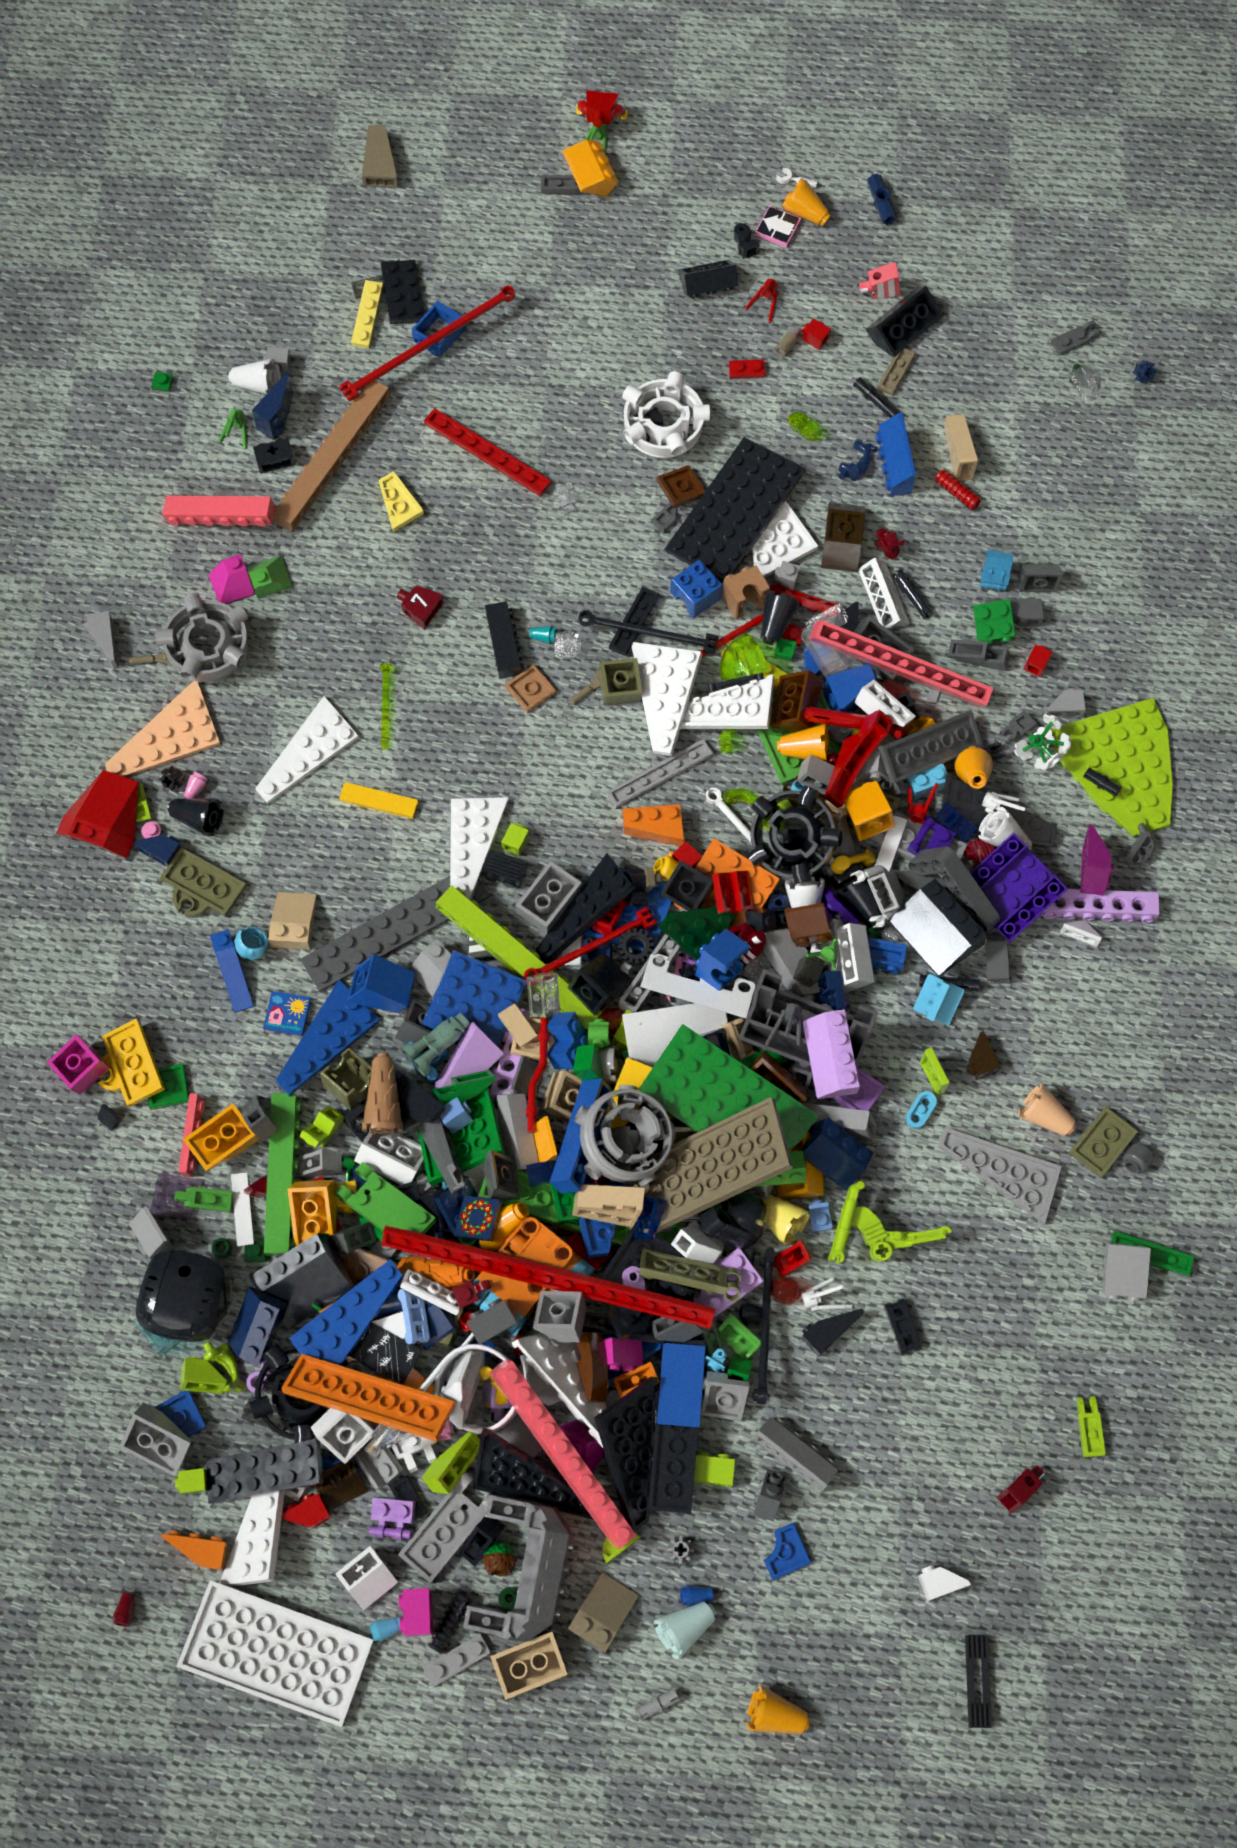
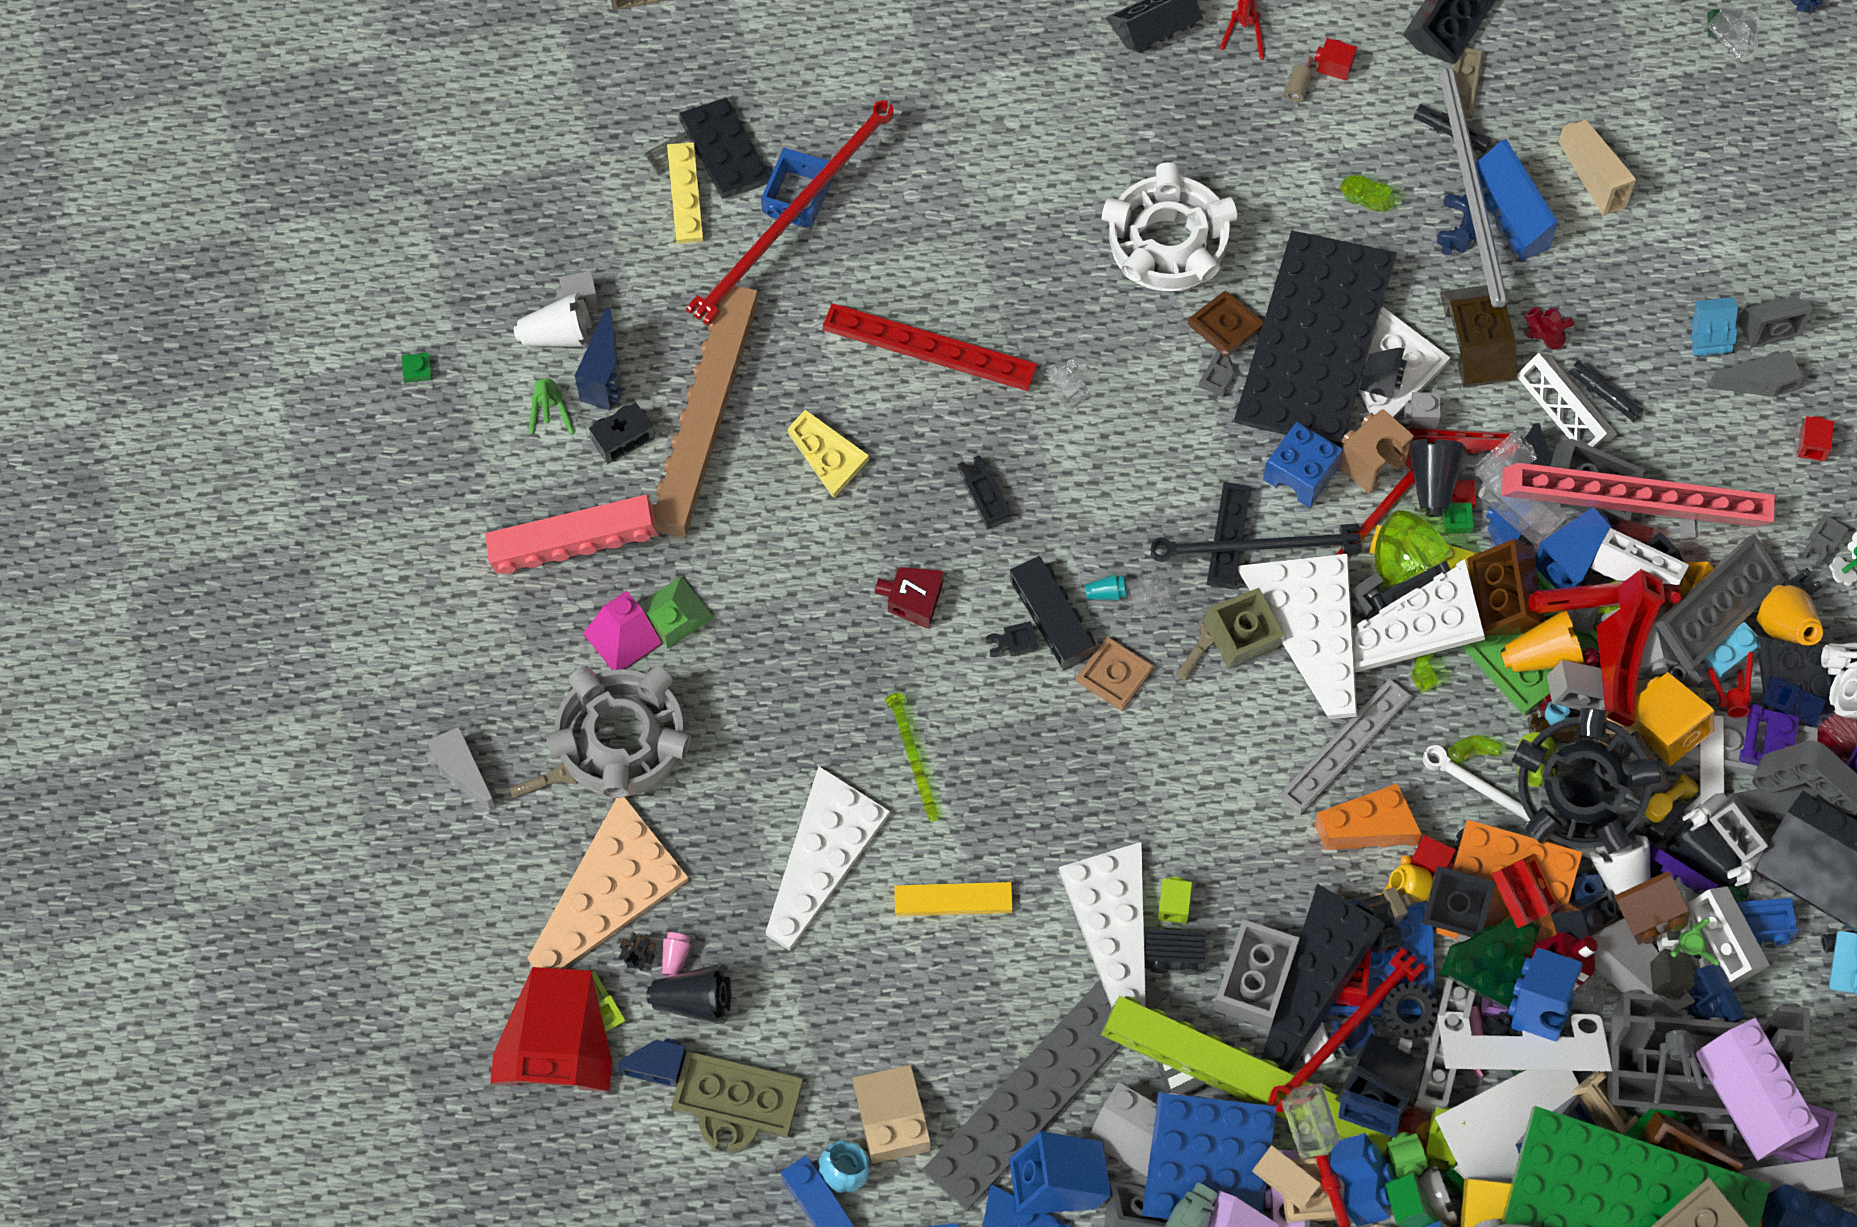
camera: 15 degrees left, 5 degrees down
(151, 829) = (631, 1038): bright pink plate -> none
(475, 651) = (1017, 639): none -> black plate
(489, 555) = (985, 494): none -> black hinge
(583, 1001) = (1367, 1111): none -> dark blue tile
(655, 417) = (1156, 233): black slope -> none
(703, 680) = (1363, 593): none -> dark grey bracket
(746, 369) = (1255, 133): red plate -> none
(768, 543) = (1384, 372): none -> black slope
(871, 441) = (1473, 188): none -> light grey axle
(957, 489) = (1613, 227): red piece -> none
(979, 654) = (1731, 451): dark grey slope -> none
(994, 621) = (1737, 400): green plate -> none

